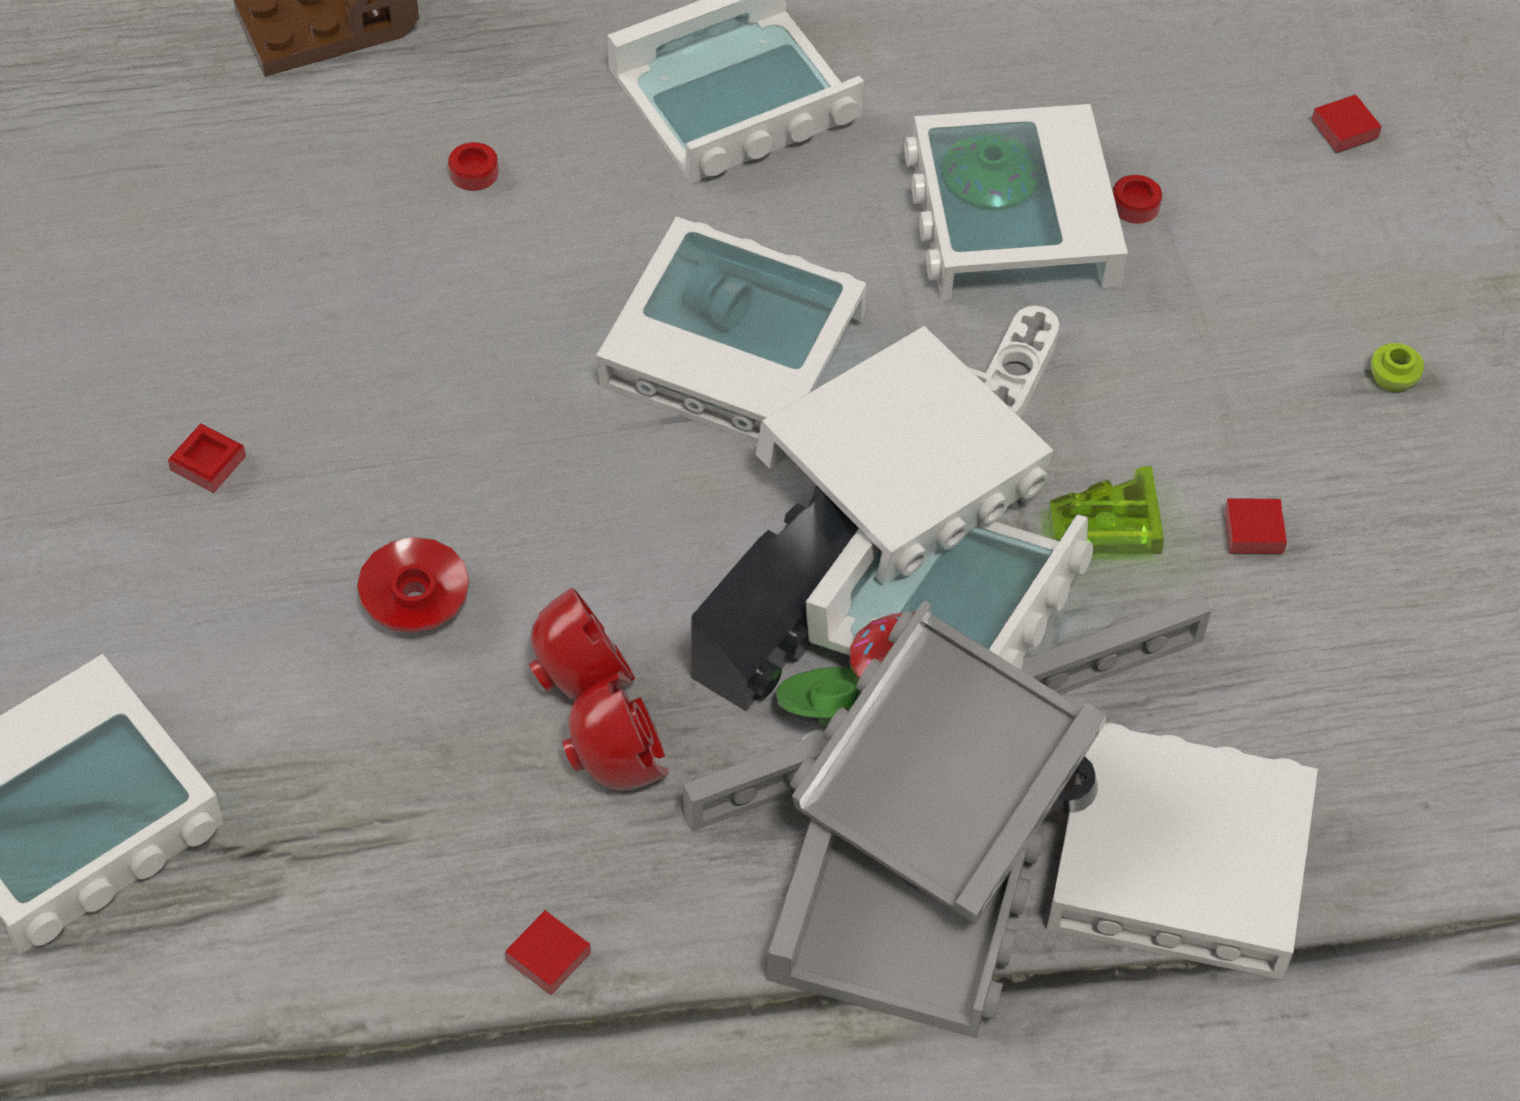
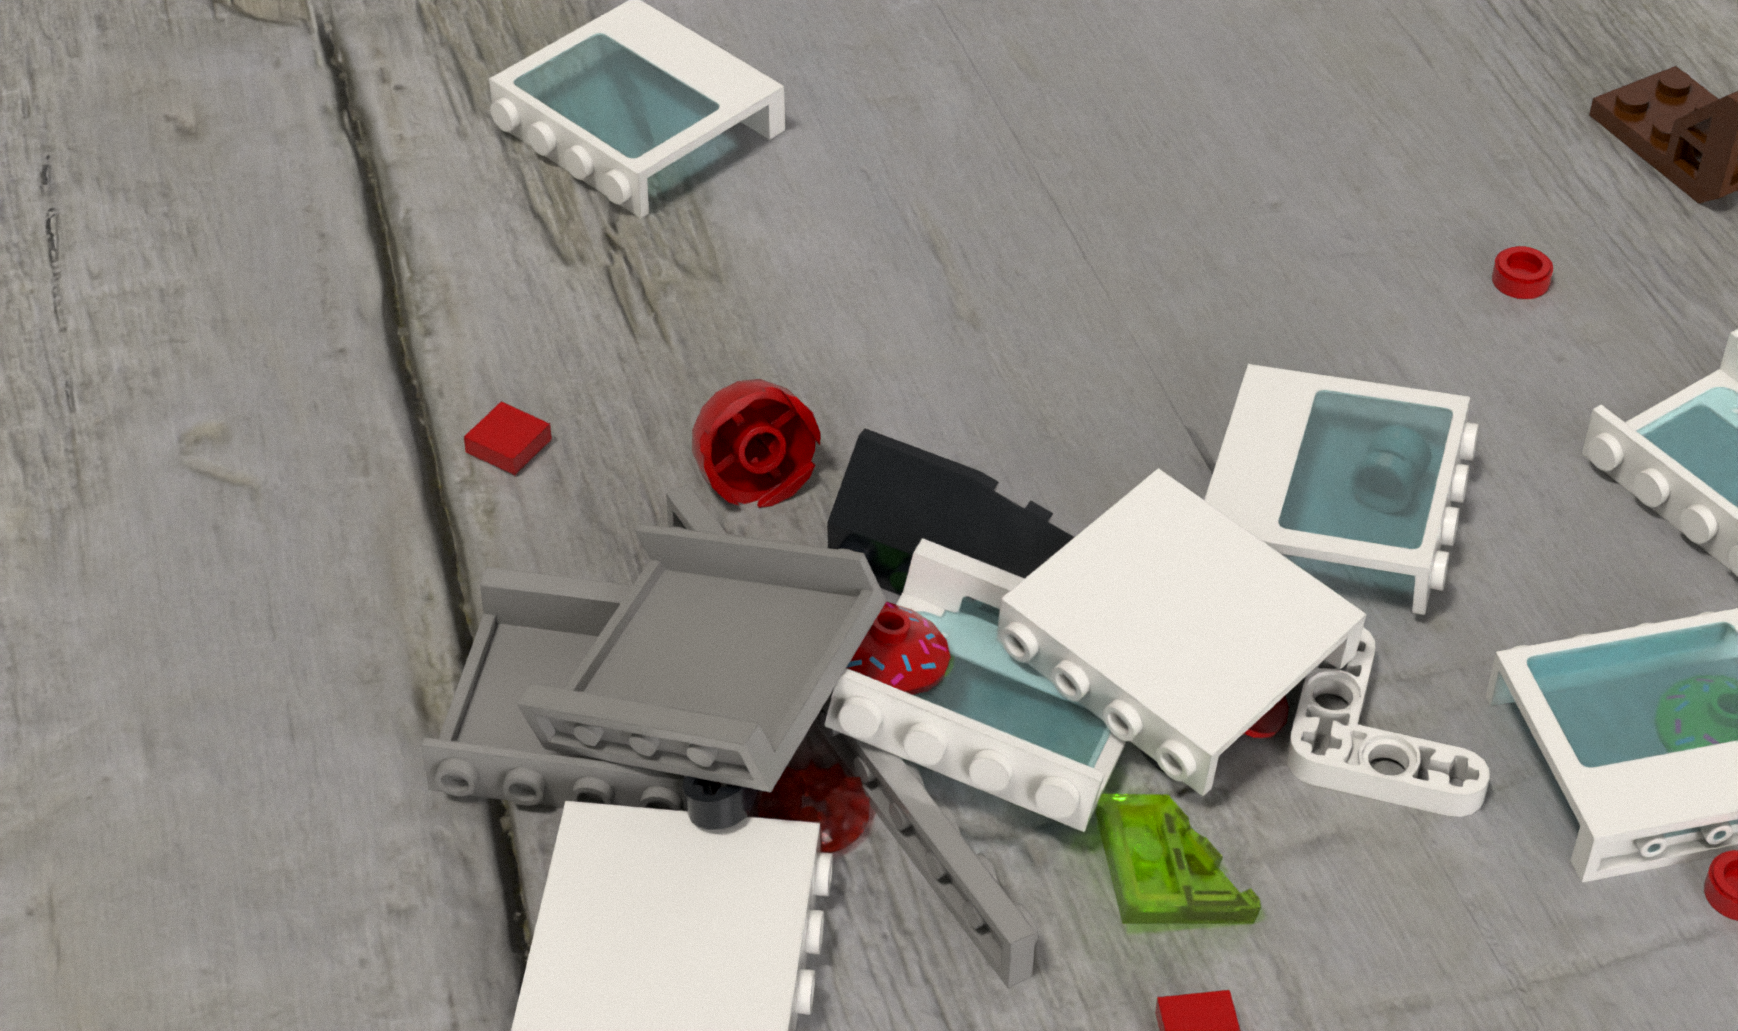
camera: 85 degrees right, 10 degrees down
(207, 458) = (1058, 142): red tile -> none
(407, 568) = (922, 284): red dish -> none
(573, 647) = (861, 389): red cylinder -> none

